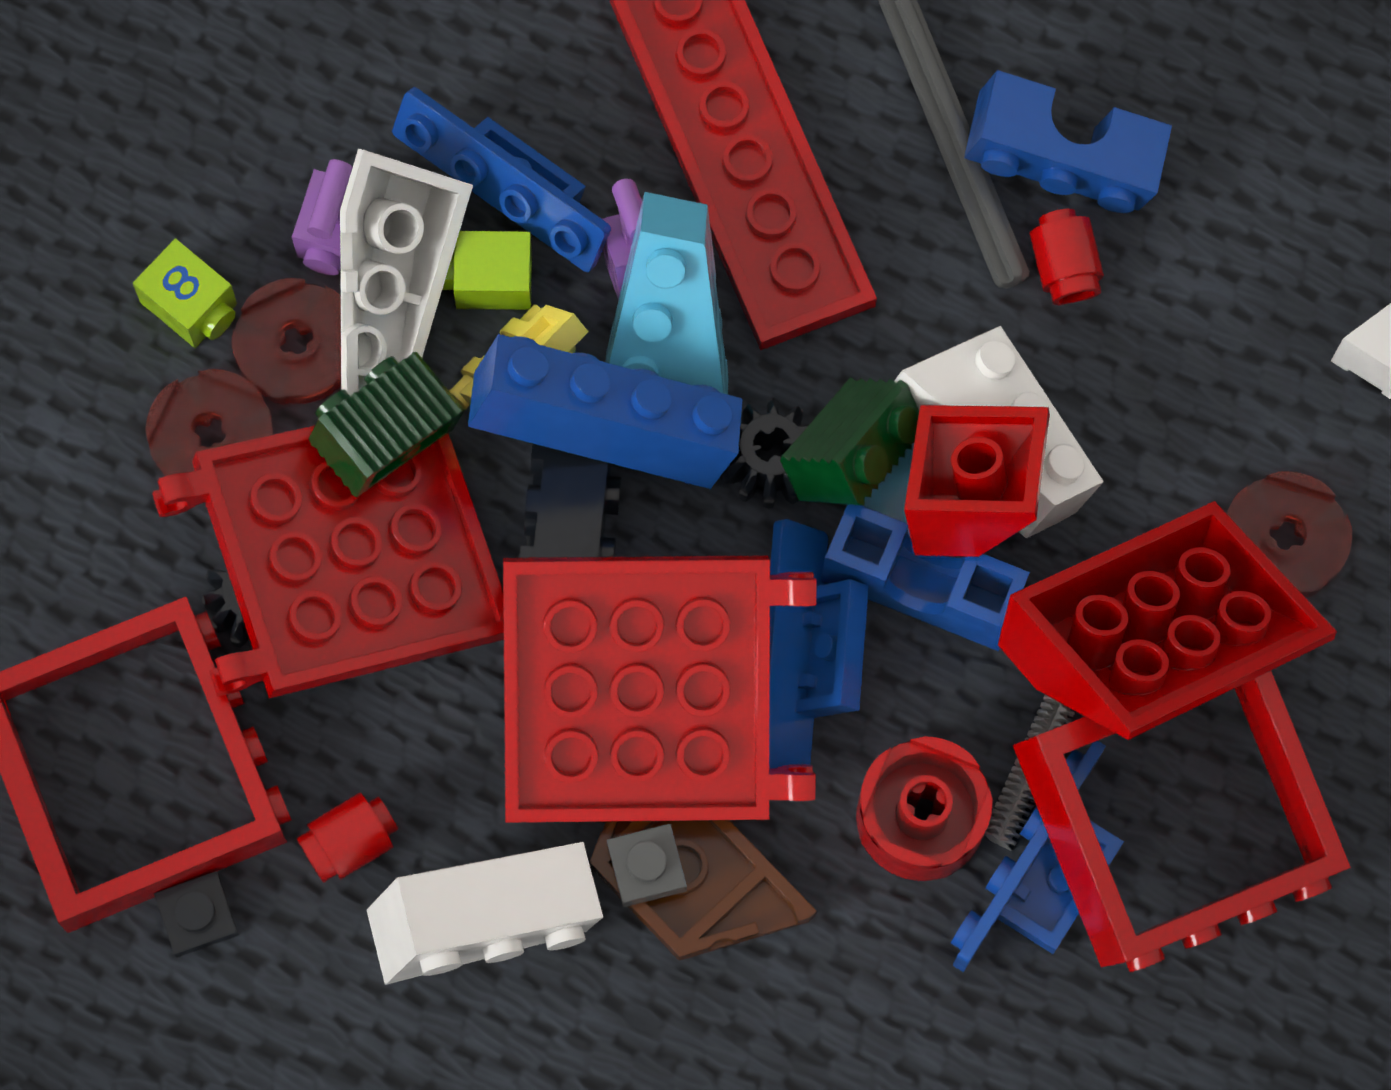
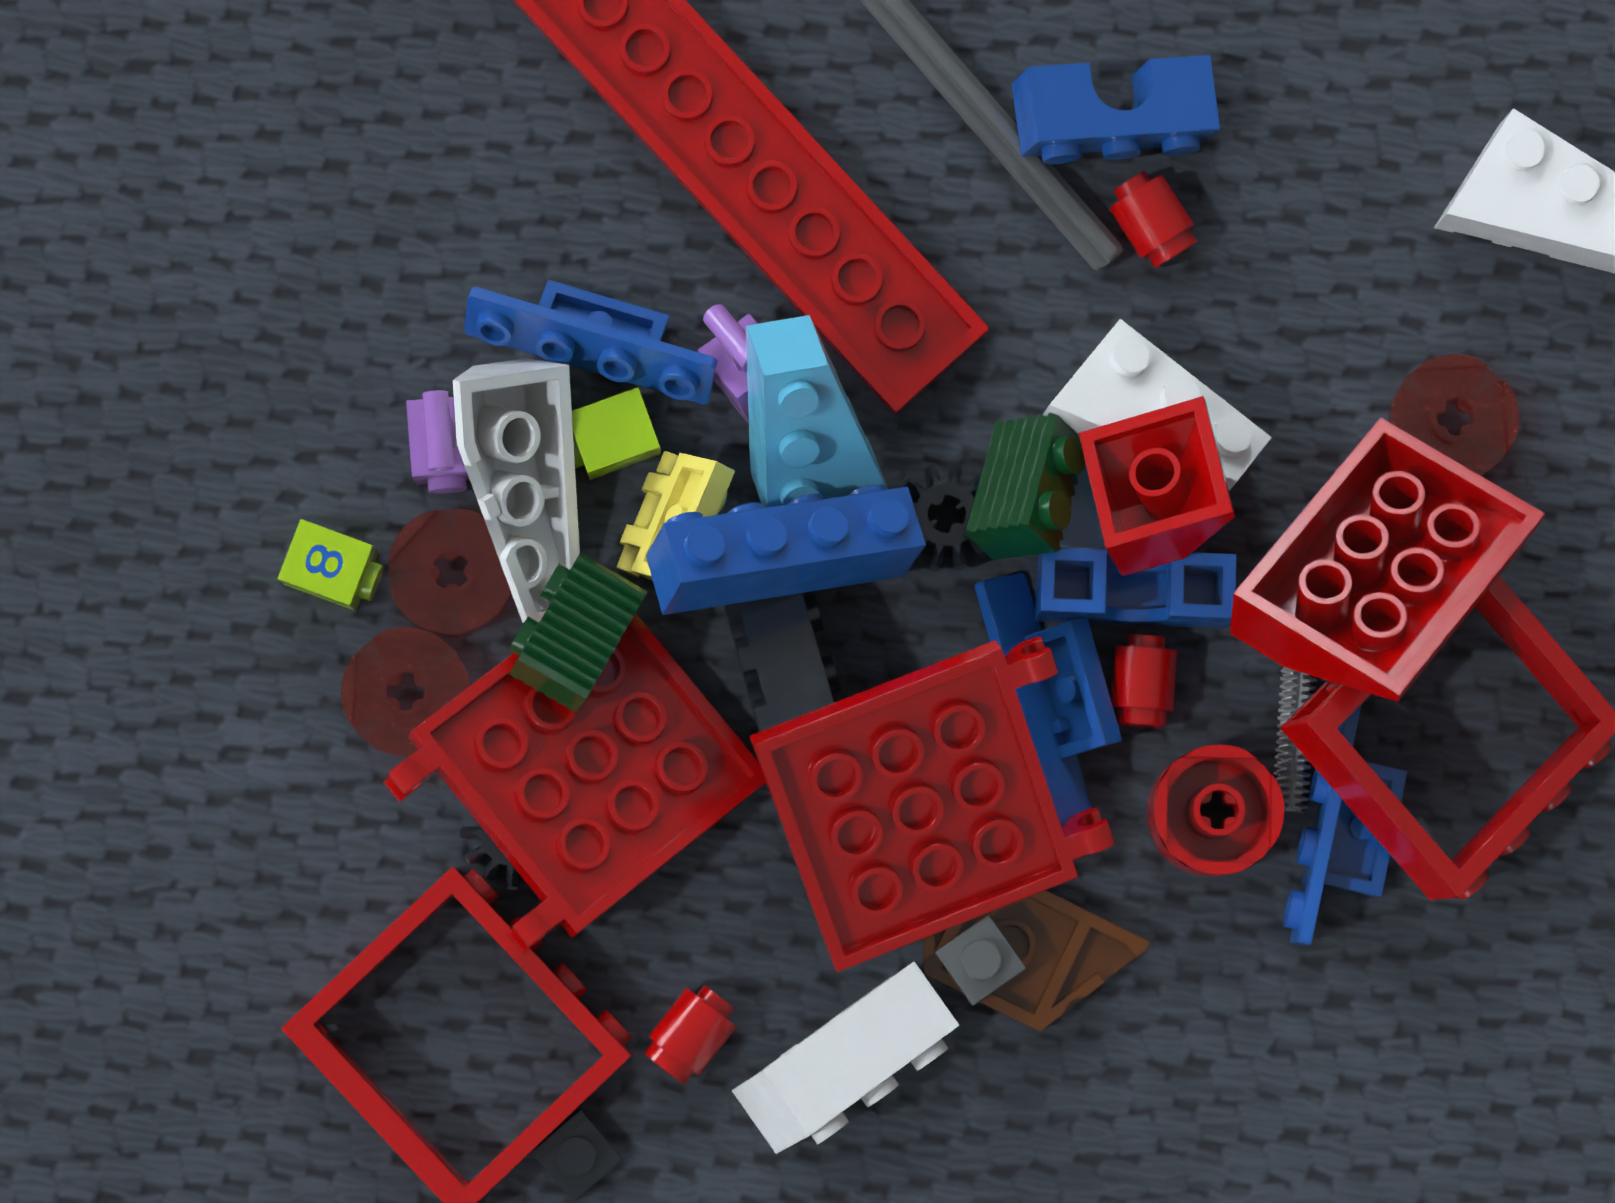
camera: 25 degrees left, 10 degrees up
(901, 669) = (1143, 681): none -> red brick

